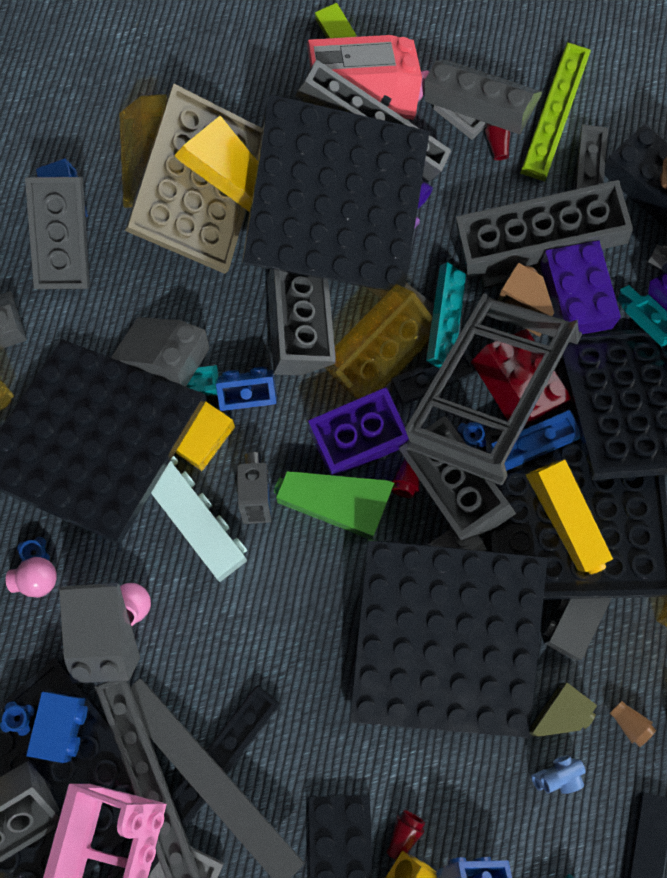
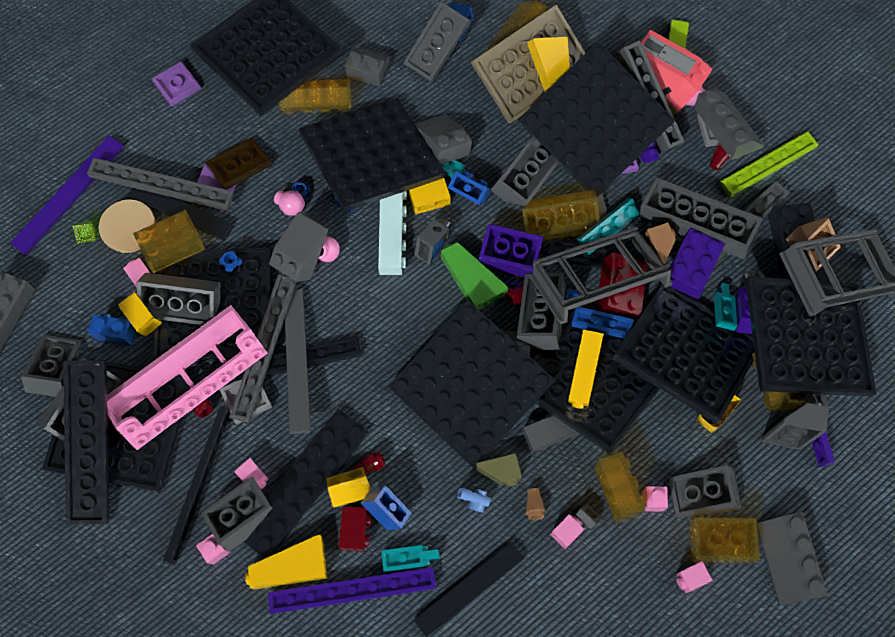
camera: 40 degrees right, 5 degrees down
(57, 727) = (245, 277): blue brick -> none

